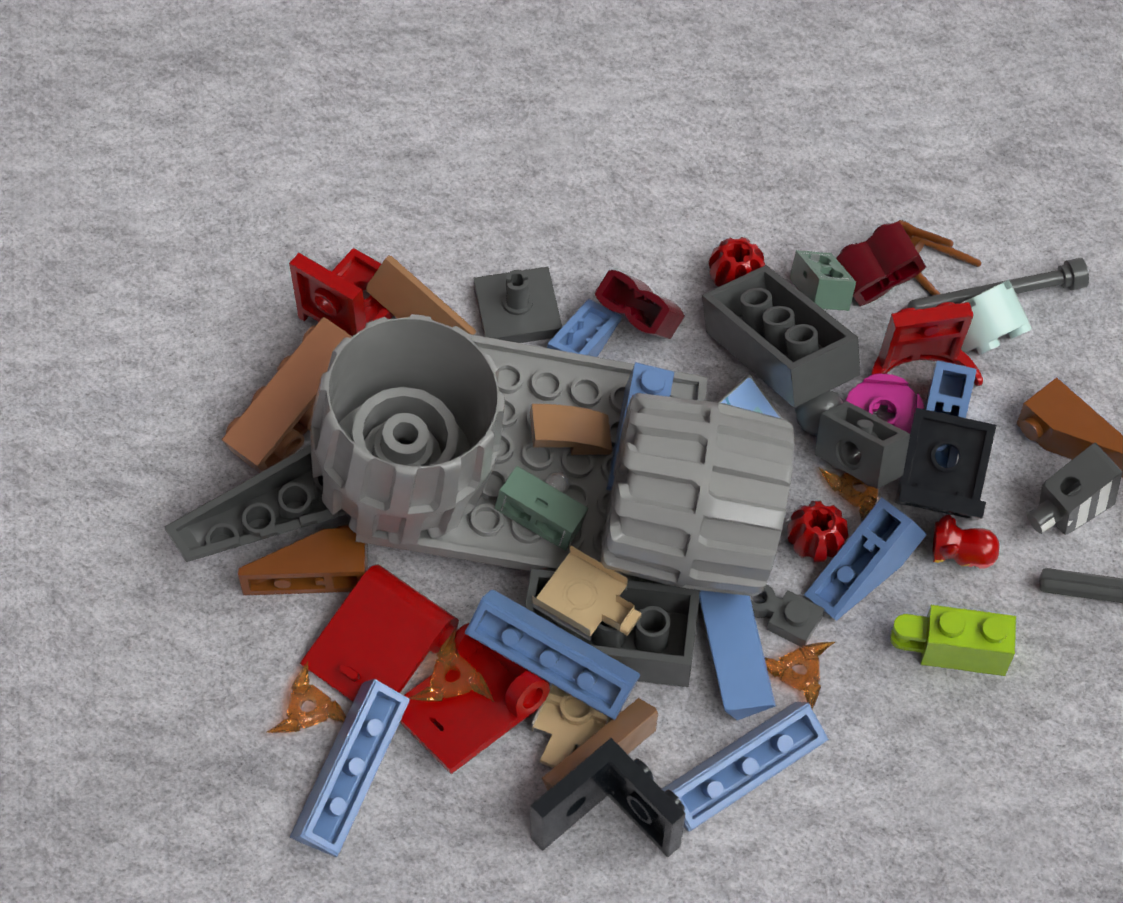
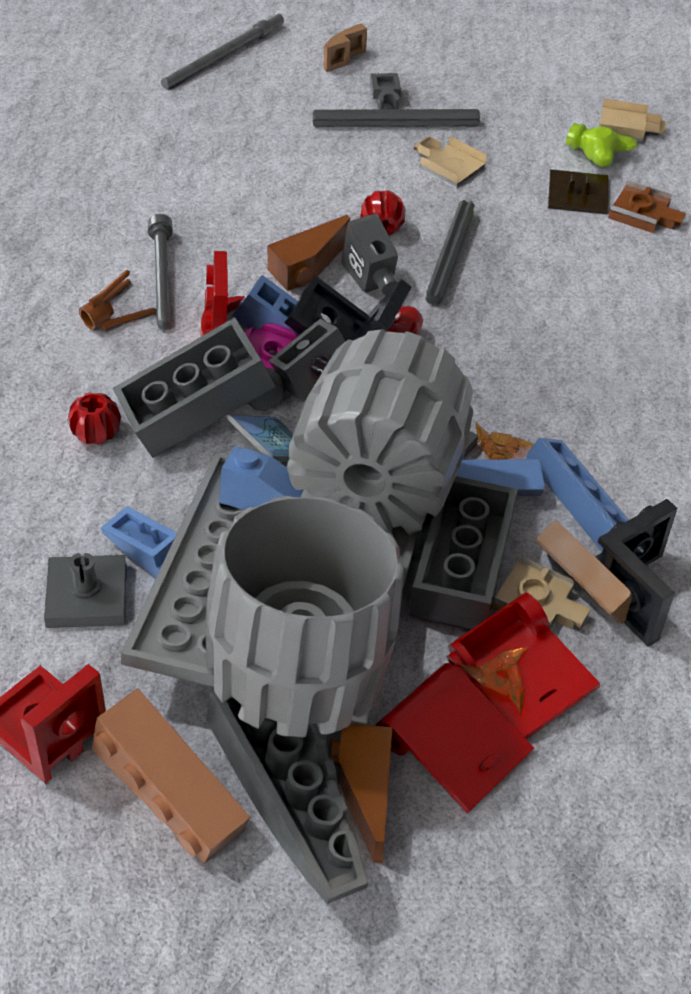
camera: 85 degrees left, 10 degrees down
(304, 692) = (522, 792): clear orange piece -> none
(350, 768) = (587, 773): medium blue slope -> none
(406, 295) = (95, 645): medium nougat slope -> none
(552, 653) = (503, 579): medium blue slope -> none
(584, 595) = (449, 548): tan piece -> none
(639, 304) = (123, 486): dark red brick -> none
(822, 280) = (133, 357): sand green piece -> none
(881, 262) = (123, 326): dark red brick -> none
(958, 639) = (487, 343): lime brick -> none
(995, 314) = (188, 275): light aqua cylinder -> none

